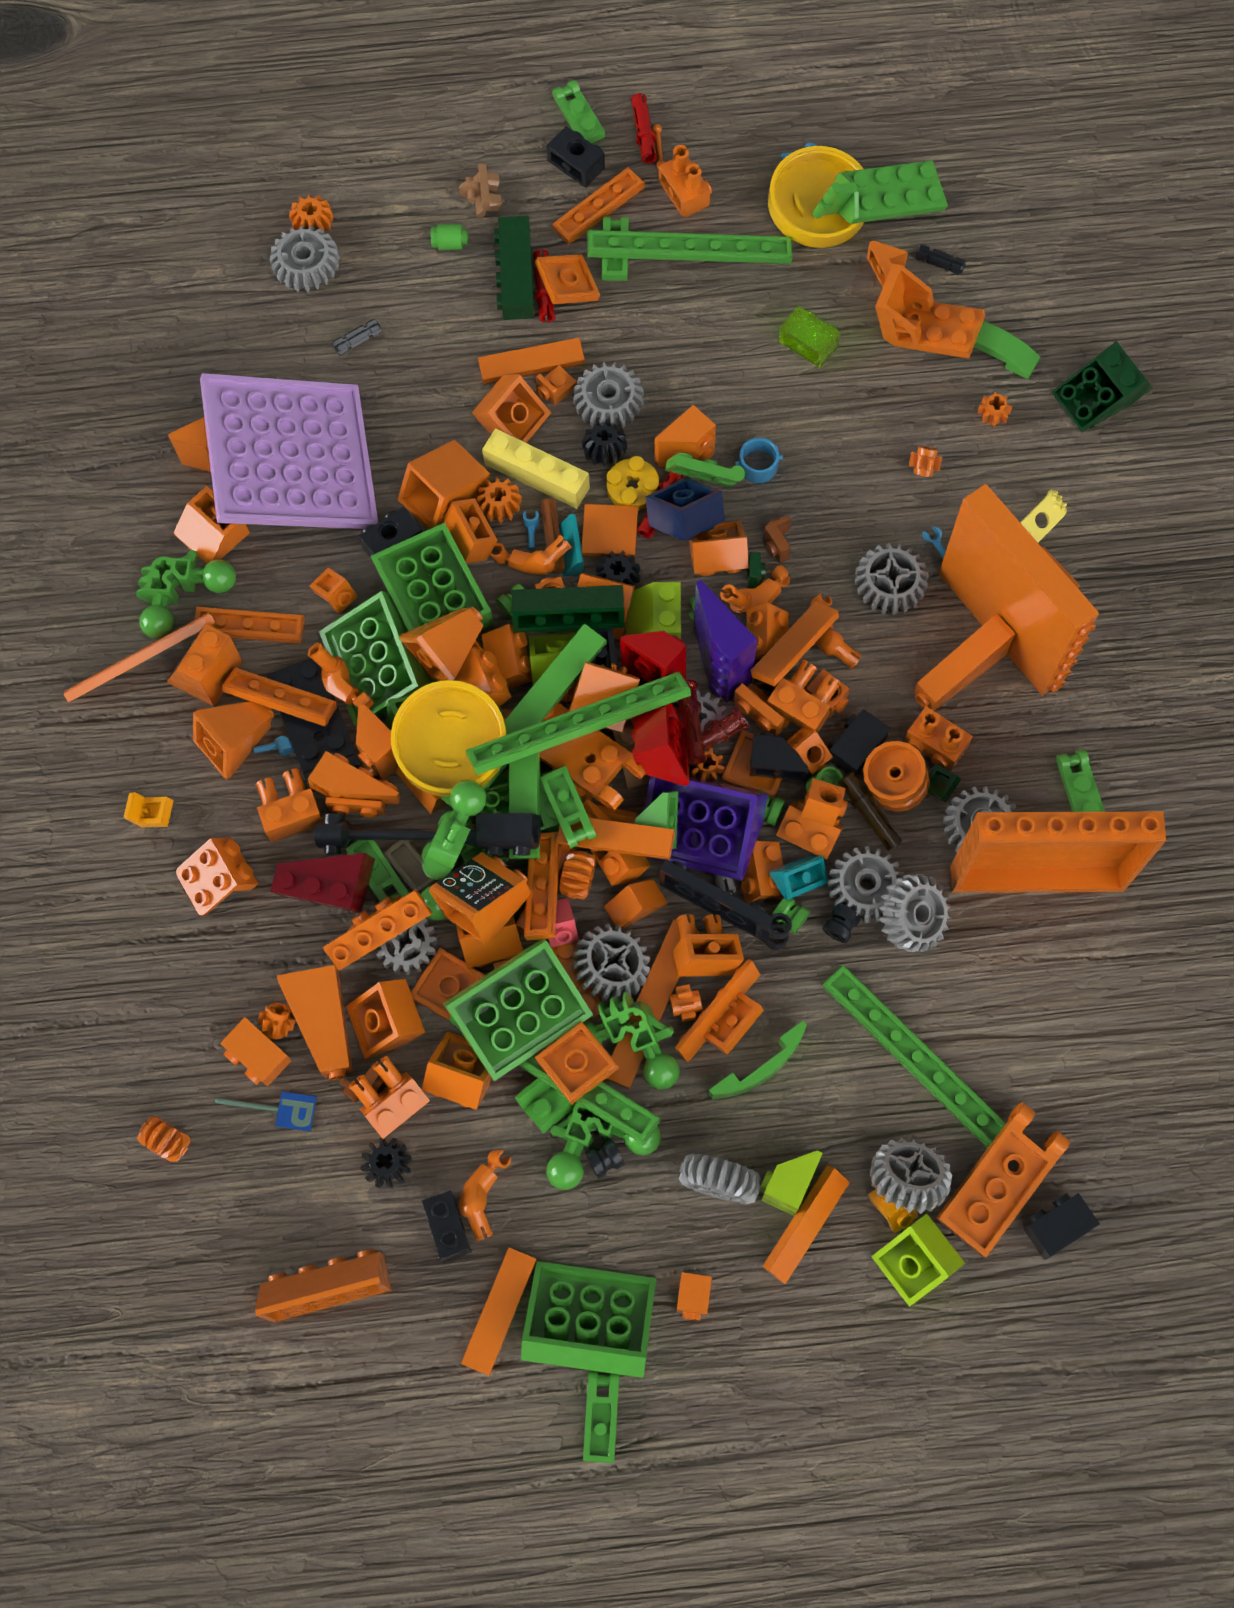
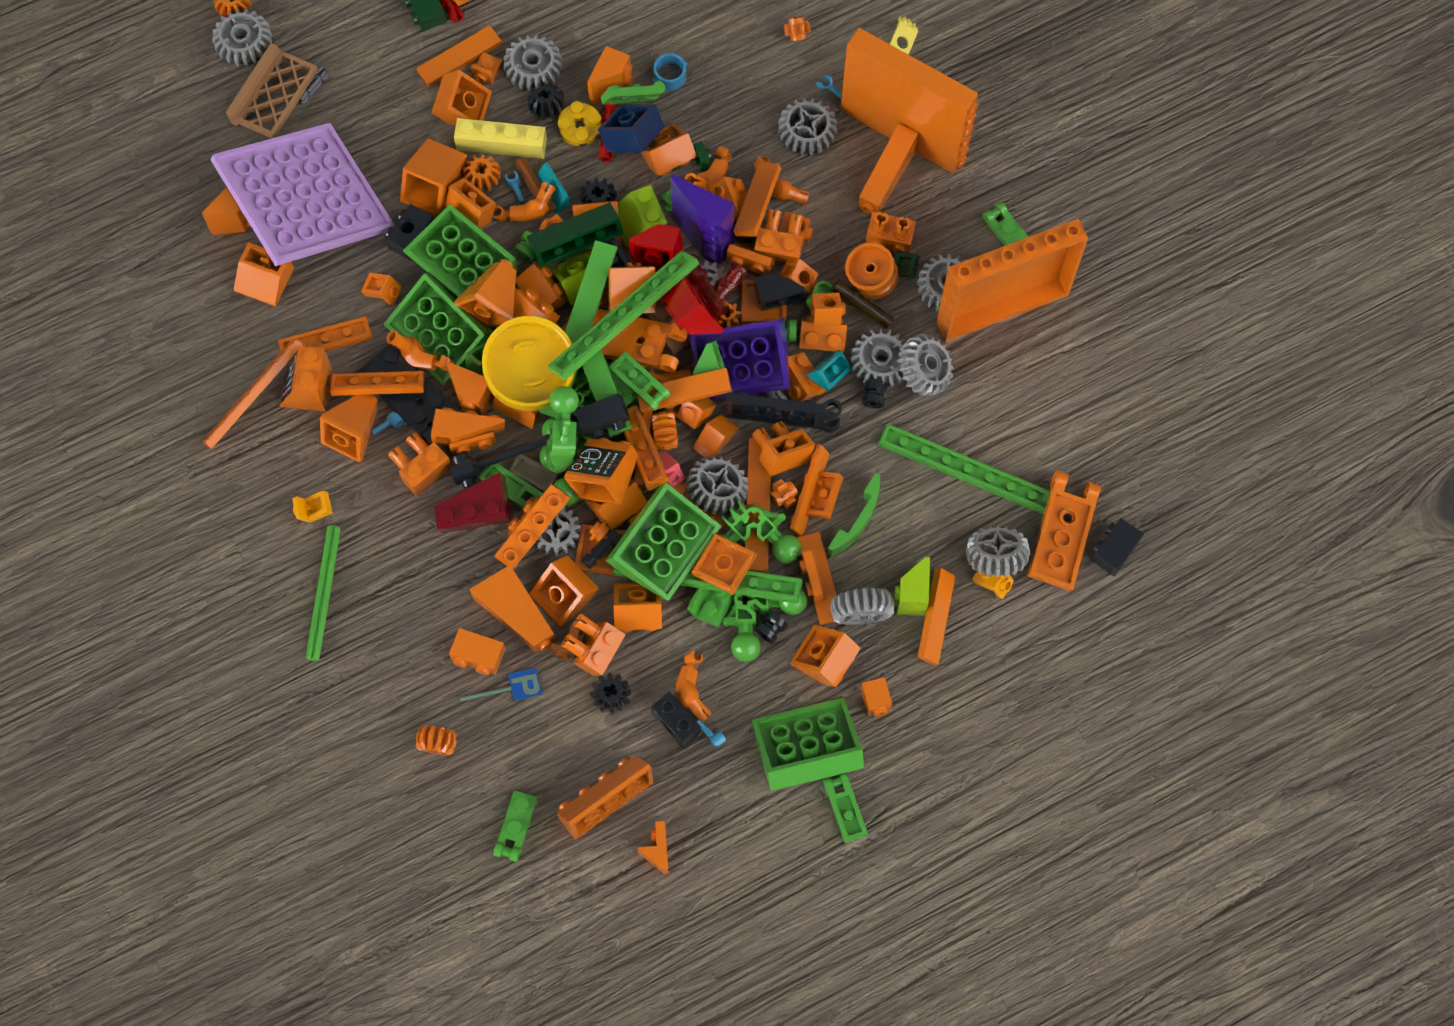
camera: 25 degrees left, 0 degrees up
(118, 914) = (323, 593): none -> bright green axle
(167, 574) = (252, 360): bright green piece -> none
(212, 1277) = (515, 825): none -> bright green plate
(215, 873) = (385, 535): orange bracket -> none
(276, 1021) = (482, 622): orange gear -> none
(297, 316) = (255, 86): none -> medium nougat fence
(359, 1384) = (657, 854): none -> orange slope
(446, 986) = (601, 549): none -> black axle
(452, 964) = (598, 531): none -> orange plate
(485, 1268) = (716, 739): none -> dark azure hand
(499, 1311) = (739, 765): orange tile -> none
(608, 530) = (577, 165): orange tile -> none
(654, 1219) = (825, 655): none -> orange slope
(686, 1116) = (819, 577): none -> orange bracket
(775, 542) = (709, 130): dark orange bracket -> none
(797, 914) = (841, 397): bright green wheel -> none
(857, 742) = (832, 257): black brick -> none
(918, 1260) = (1026, 610): lime slope -> none

